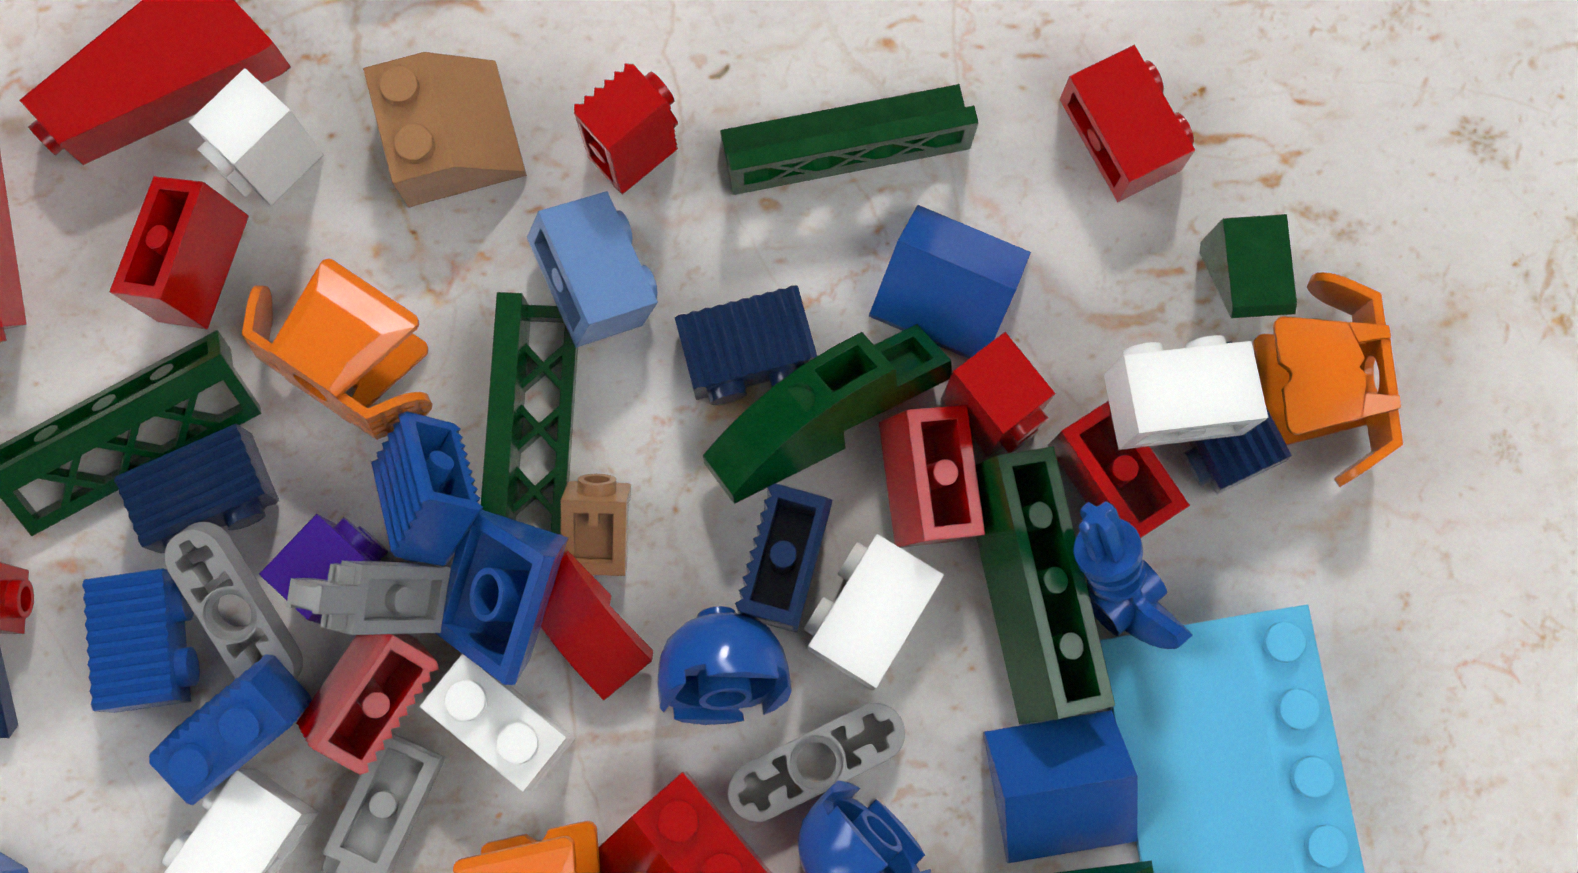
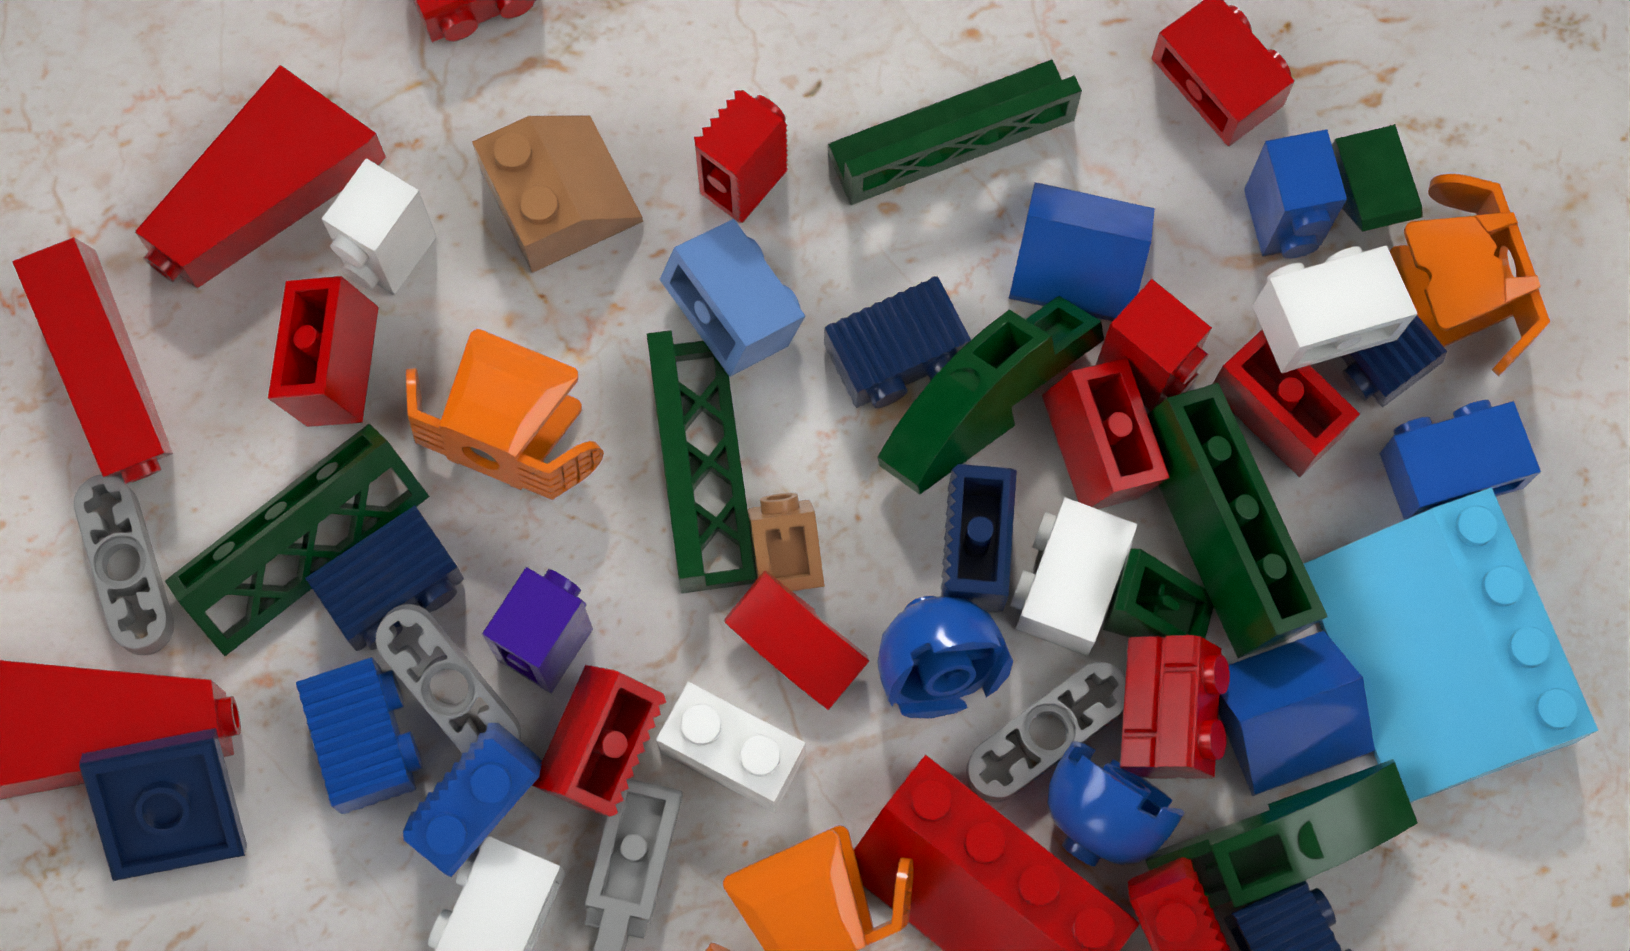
camera: 10 degrees left, 5 degrees down
(375, 597) = (601, 635): light grey hinge -> none
(425, 489) = (617, 533): blue brick -> none
(500, 593) = (709, 615): blue slope -> none
(943, 765) = (1173, 707): none -> red brick
(952, 657) = (1156, 601): none -> dark green slope
(1121, 582) = (1307, 499): blue piece -> none
(1172, 265) = (1295, 194): none -> blue brick
(1282, 564) = (1459, 457): none -> blue brick

